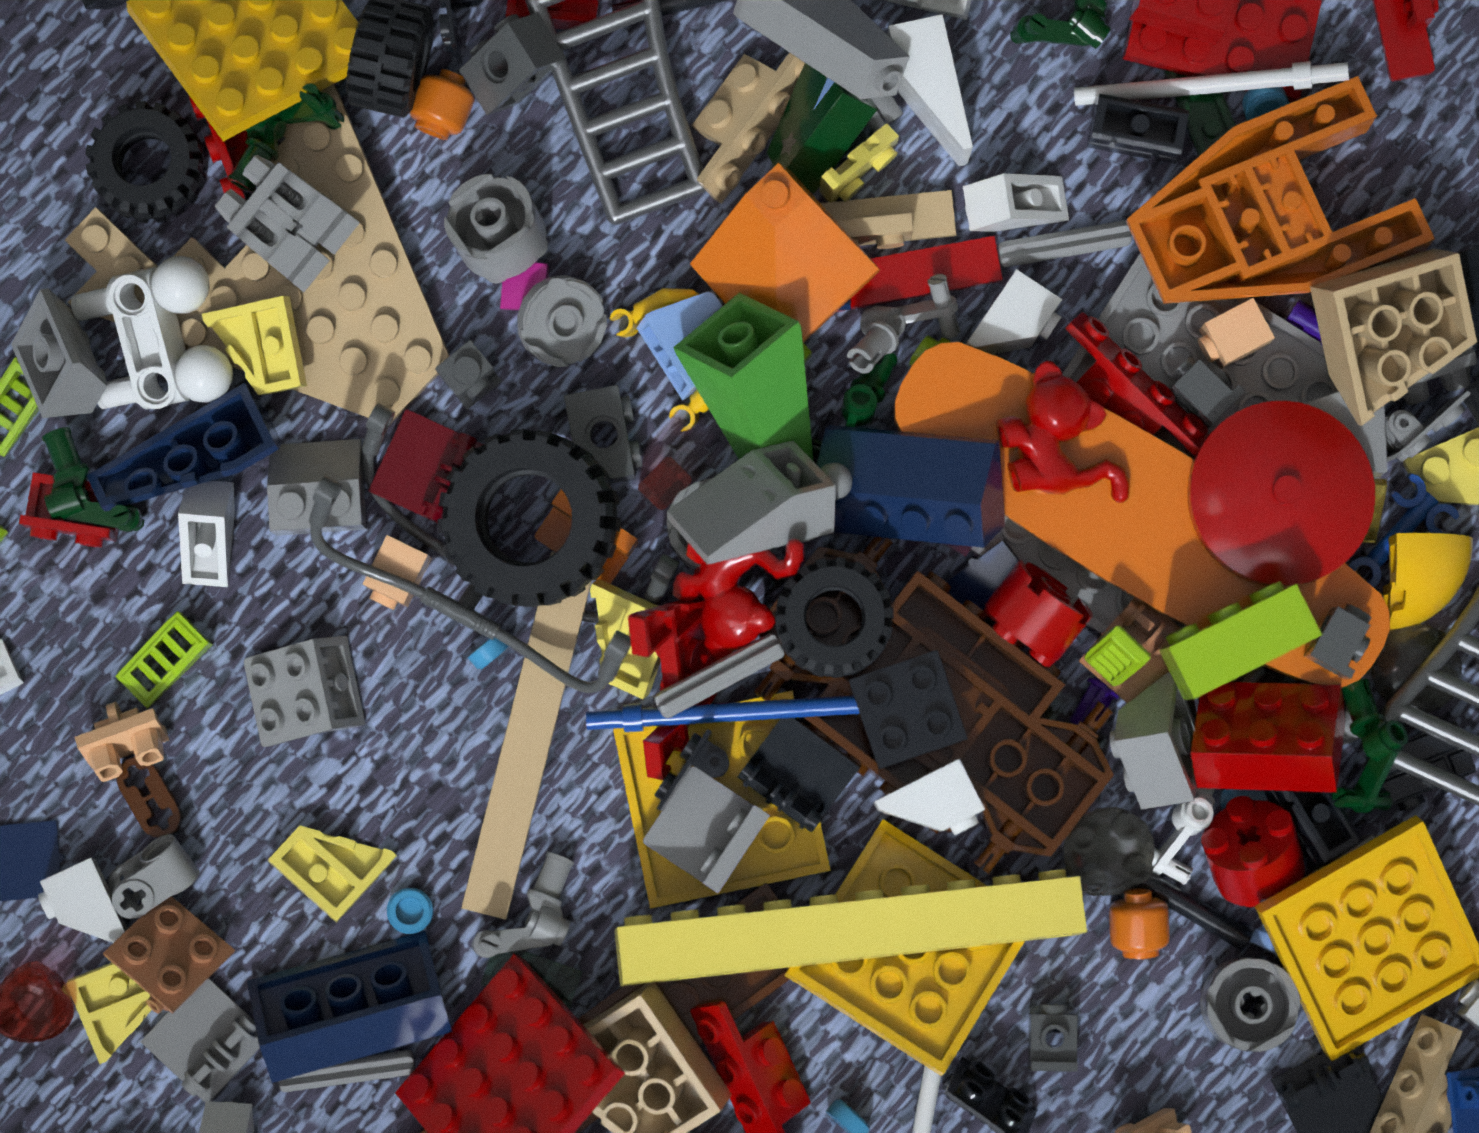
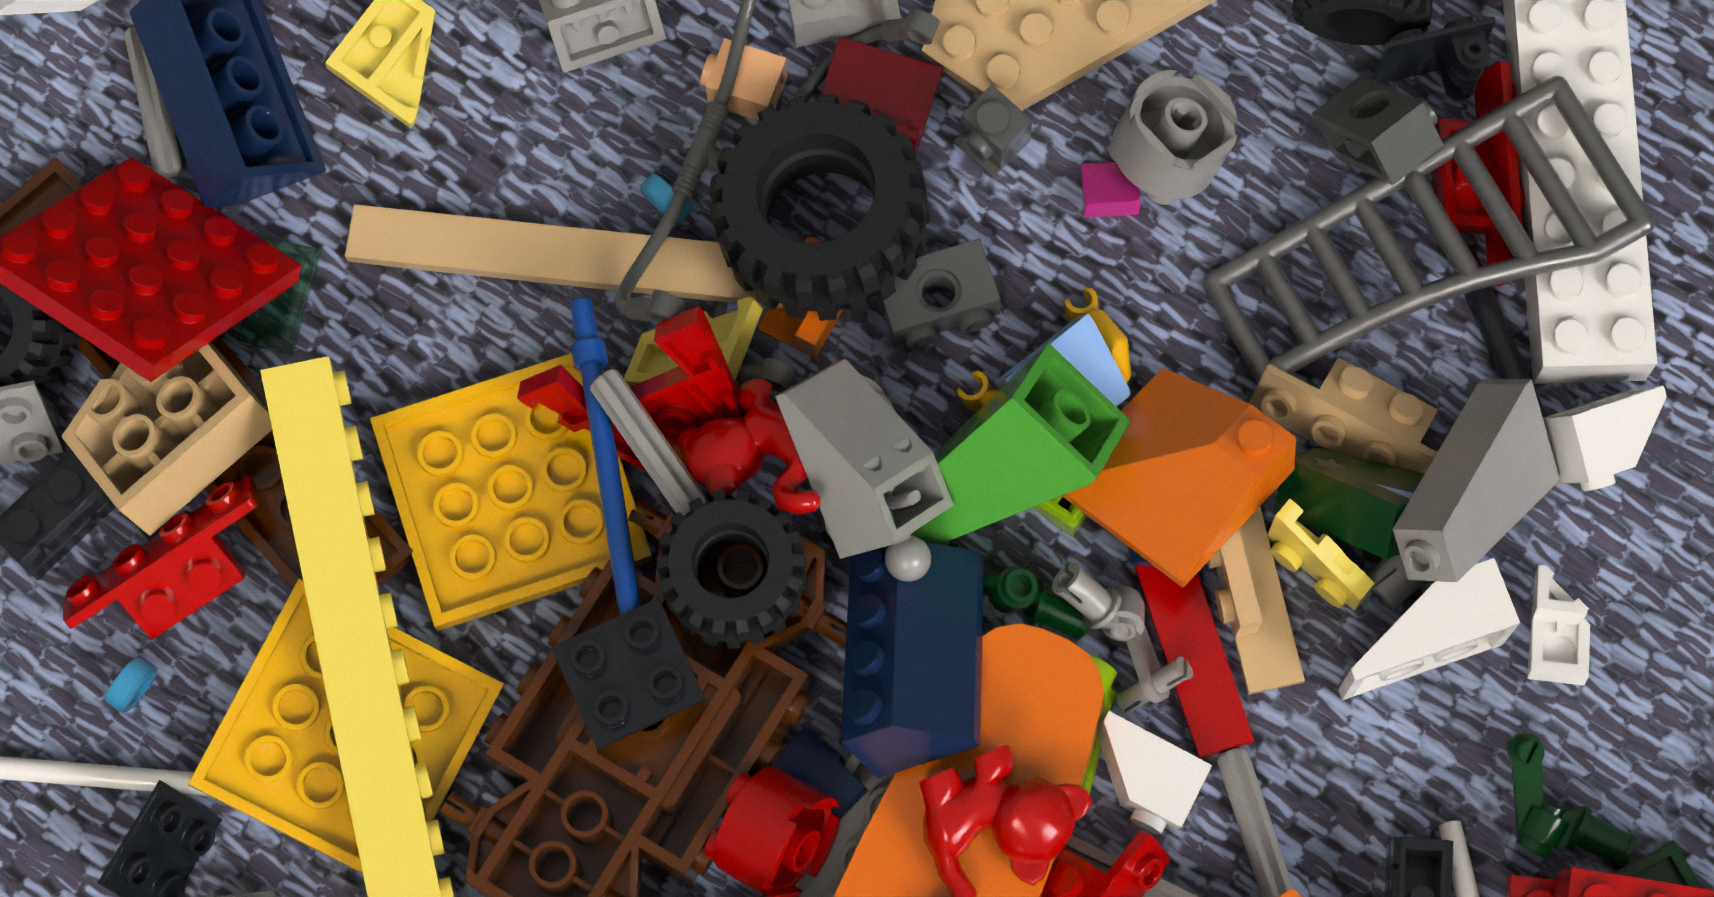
camera: 85 degrees right, 10 degrees down
(410, 910) = (347, 149): dark azure tile -> none
(442, 104) = (1317, 63): orange head -> none
(545, 921) = (349, 301): light grey pin -> none
(561, 320) = (1072, 230): light grey tile -> none
(664, 483) = (890, 370): clear red slope -> none
(700, 754) = (551, 438): black hinge -> none
(705, 829) = (467, 468): light grey bracket -> none
(798, 772) = (544, 565): black hinge -> none
(936, 800) = (518, 723): white slope -> none
(1015, 202) = (1300, 761): white slope -> none

